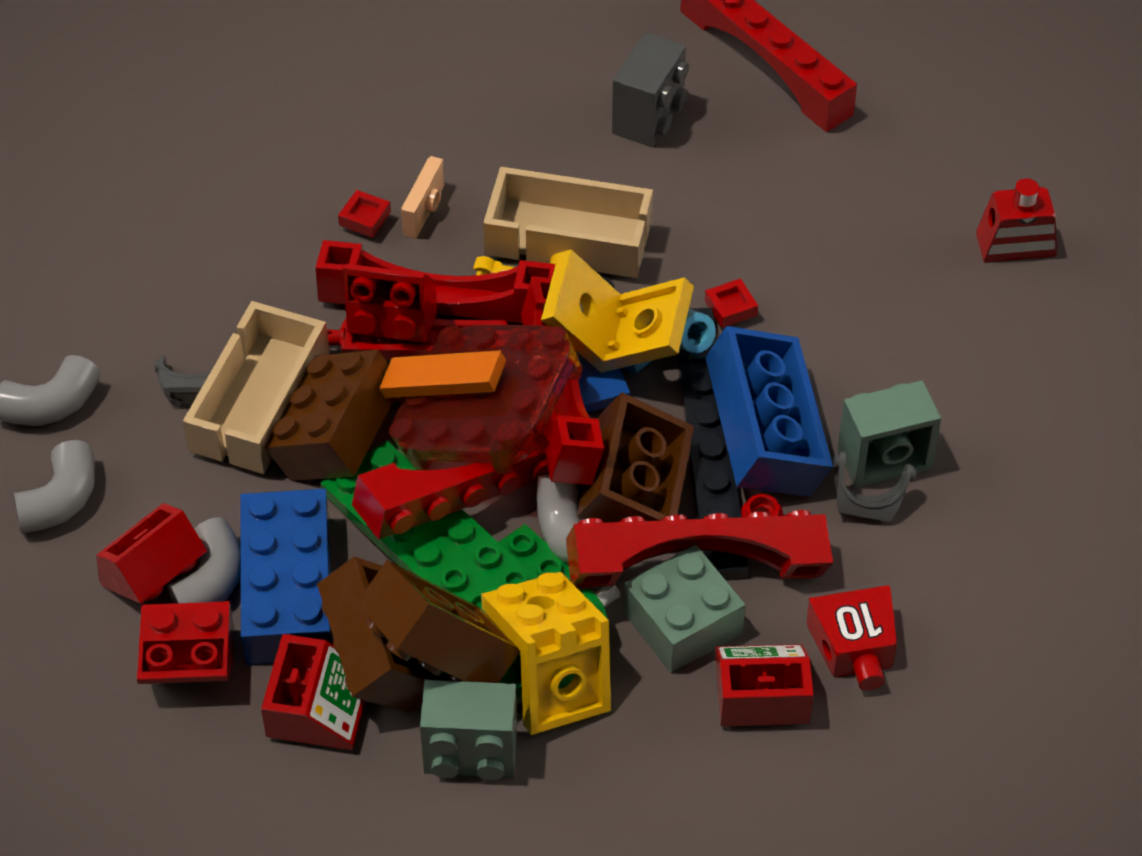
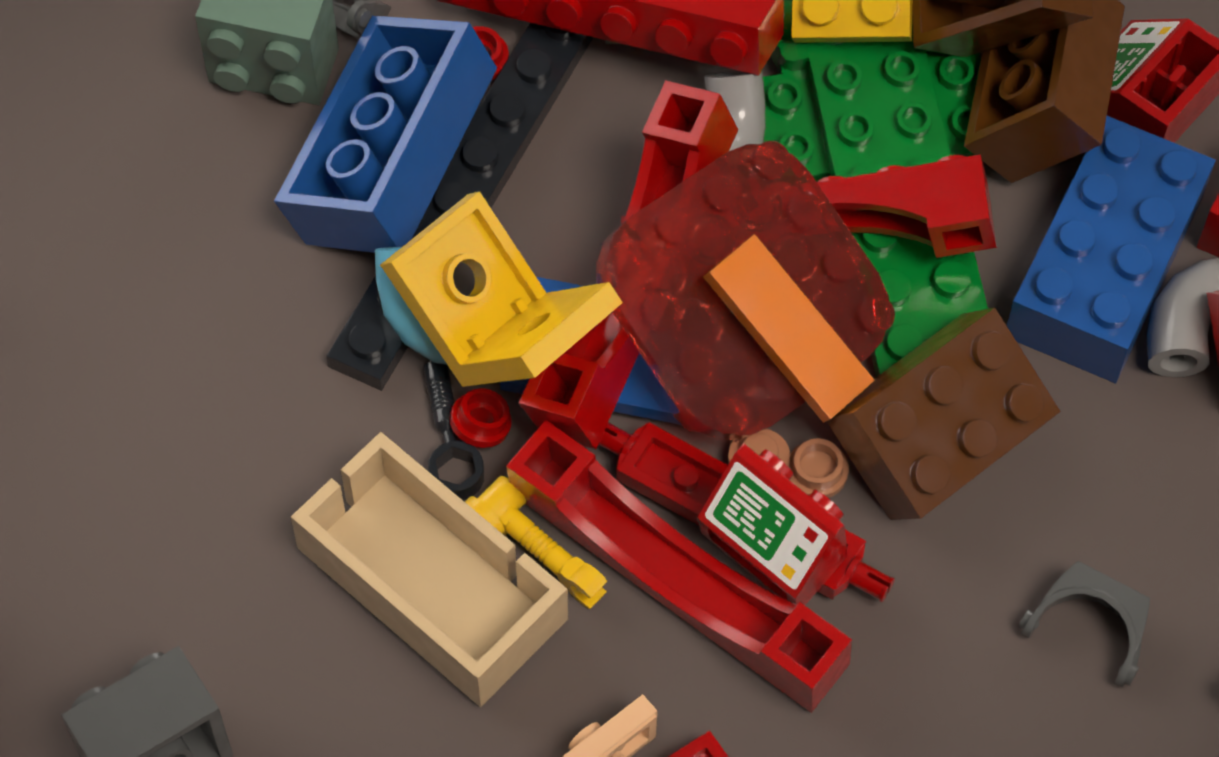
camera: 150 degrees left, 10 degrees up
(248, 397) = (1017, 526): tan piece -> none
(639, 465) = (588, 141): reddish brown brick -> none
(731, 303) = (296, 348): red plate -> none

